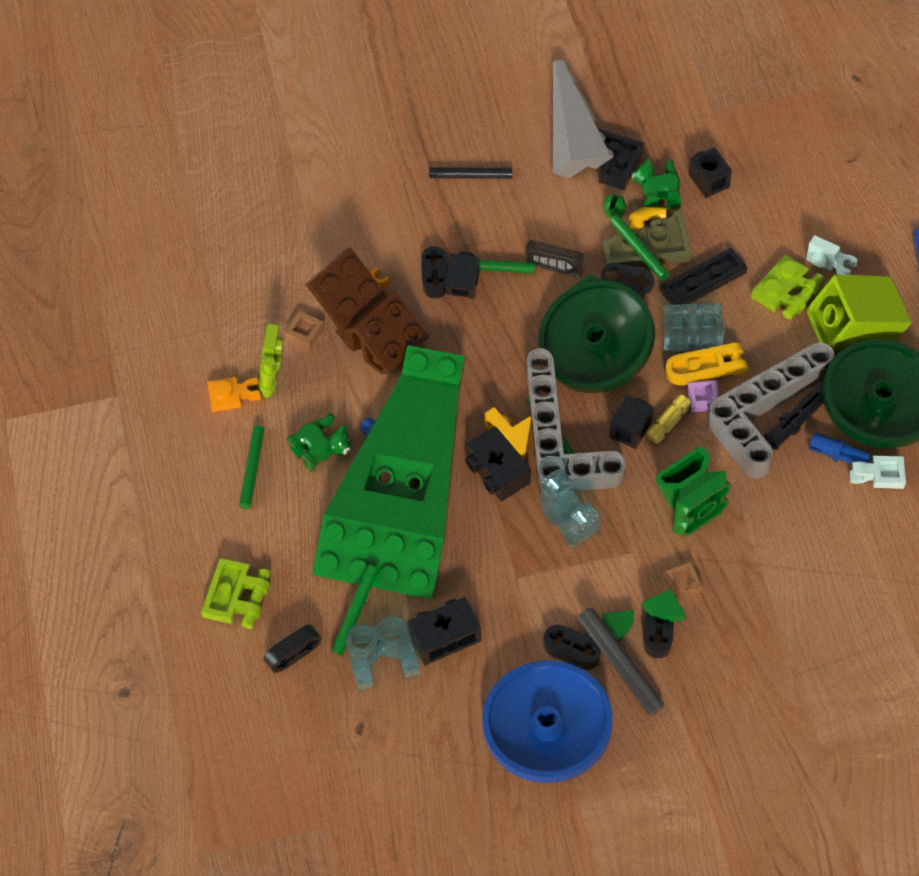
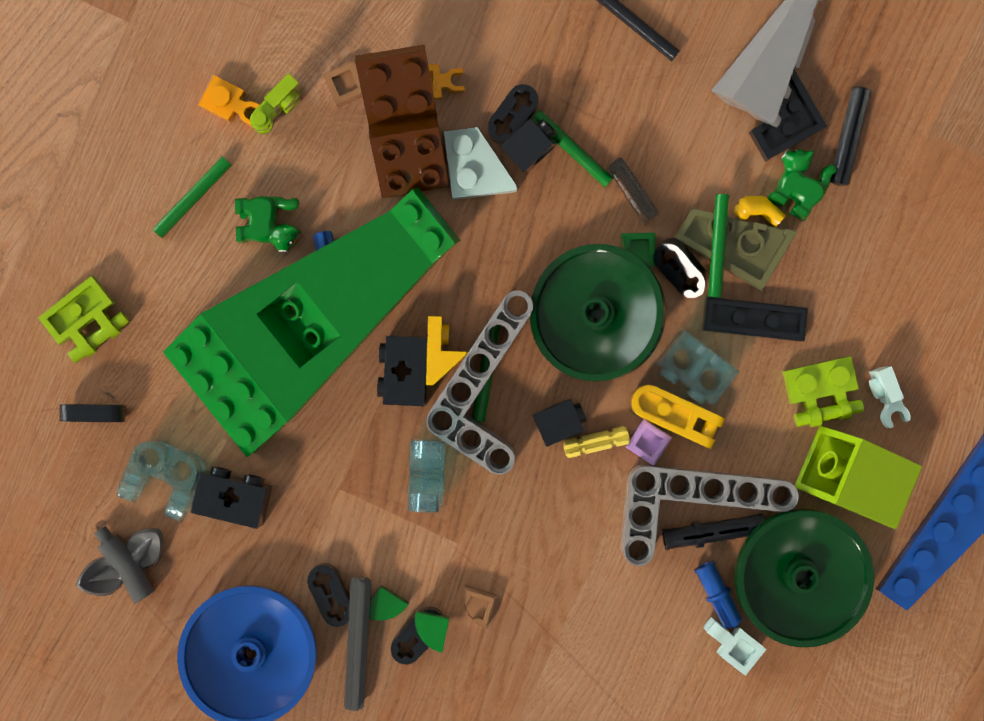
camera: 40 degrees right, 30 degrees up
(355, 608) = (170, 419): green bar -> none
(401, 734) = (123, 564): none -> dark grey plant
(440, 317) = (474, 166): none -> light aqua wing
(620, 206) = (745, 178): green hinge -> none
(664, 140) = (851, 135): none -> black axle
(693, 491) = (545, 545): green piece -> none
(710, 172) = (850, 219): black brick -> none

